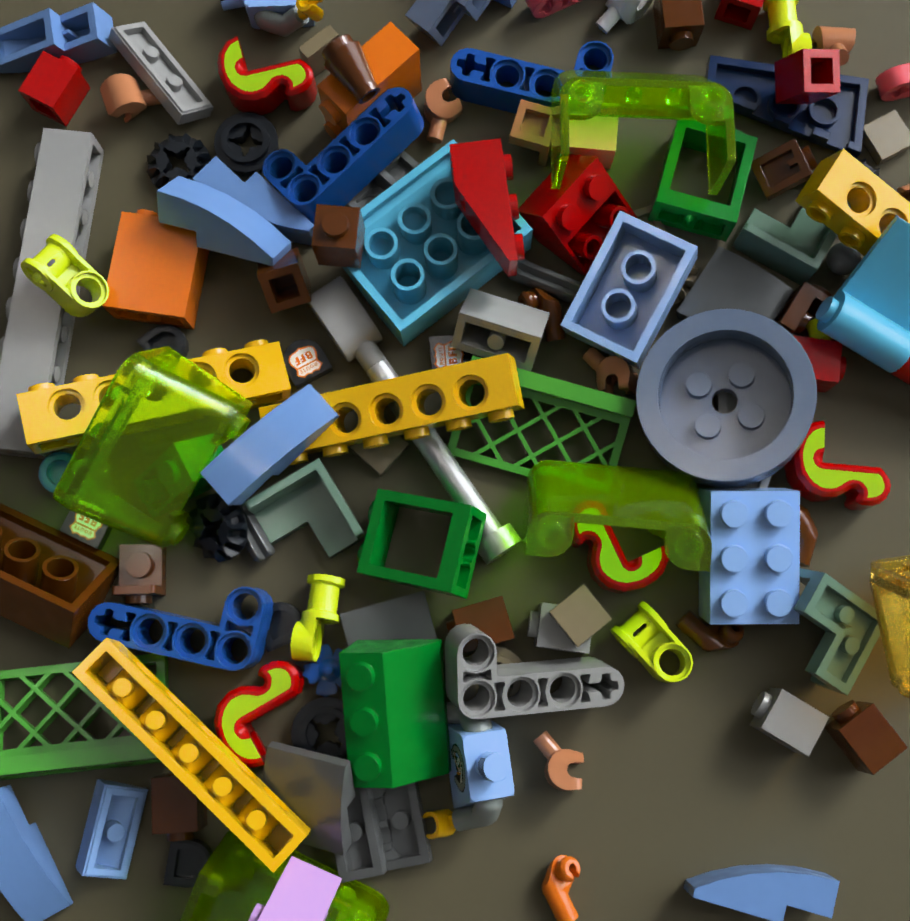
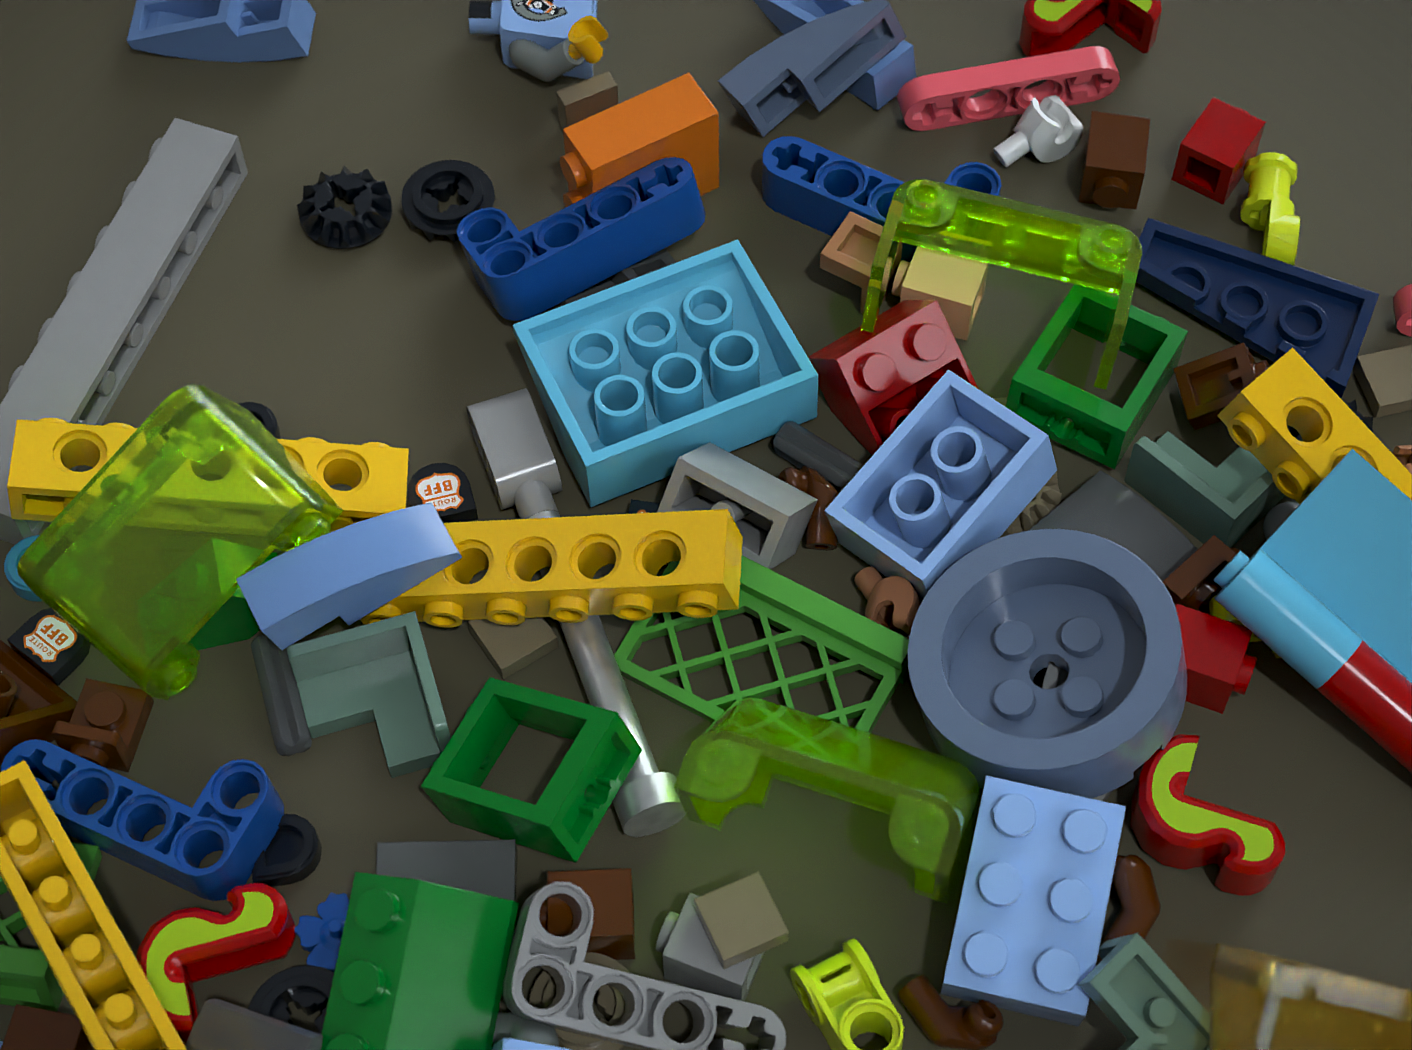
camera: 15 degrees right, 20 degrees down
(55, 87) = (208, 78): red brick -> none
(64, 275) = (138, 294): neon yellow piece -> none
(123, 95) = (300, 104): nougat piece -> none
(155, 272) = (269, 329): orange brick -> none
(160, 72) = (359, 90): light grey tile -> none
(220, 222) = (376, 277): medium blue slope -> none
(232, 531) = (254, 692): black gear -> none
(260, 197) = (433, 275): medium blue slope -> none
(265, 87) = (497, 134): red animal -> none
(285, 282) = (442, 375): reddish brown brick -> none
(321, 610) = (322, 865): neon yellow connector -> none
(338, 236) = (533, 318): reddish brown brick -> none
(350, 67) = (613, 110): reddish brown cone -> none
(438, 110) = (736, 207): nougat piece -> none
(482, 195) = (754, 308): red slope -> none
(609, 565) = (810, 871): animal -> none
(807, 76) = (1275, 261): red brick -> none
(835, 38) = (1337, 244): nougat piece -> none

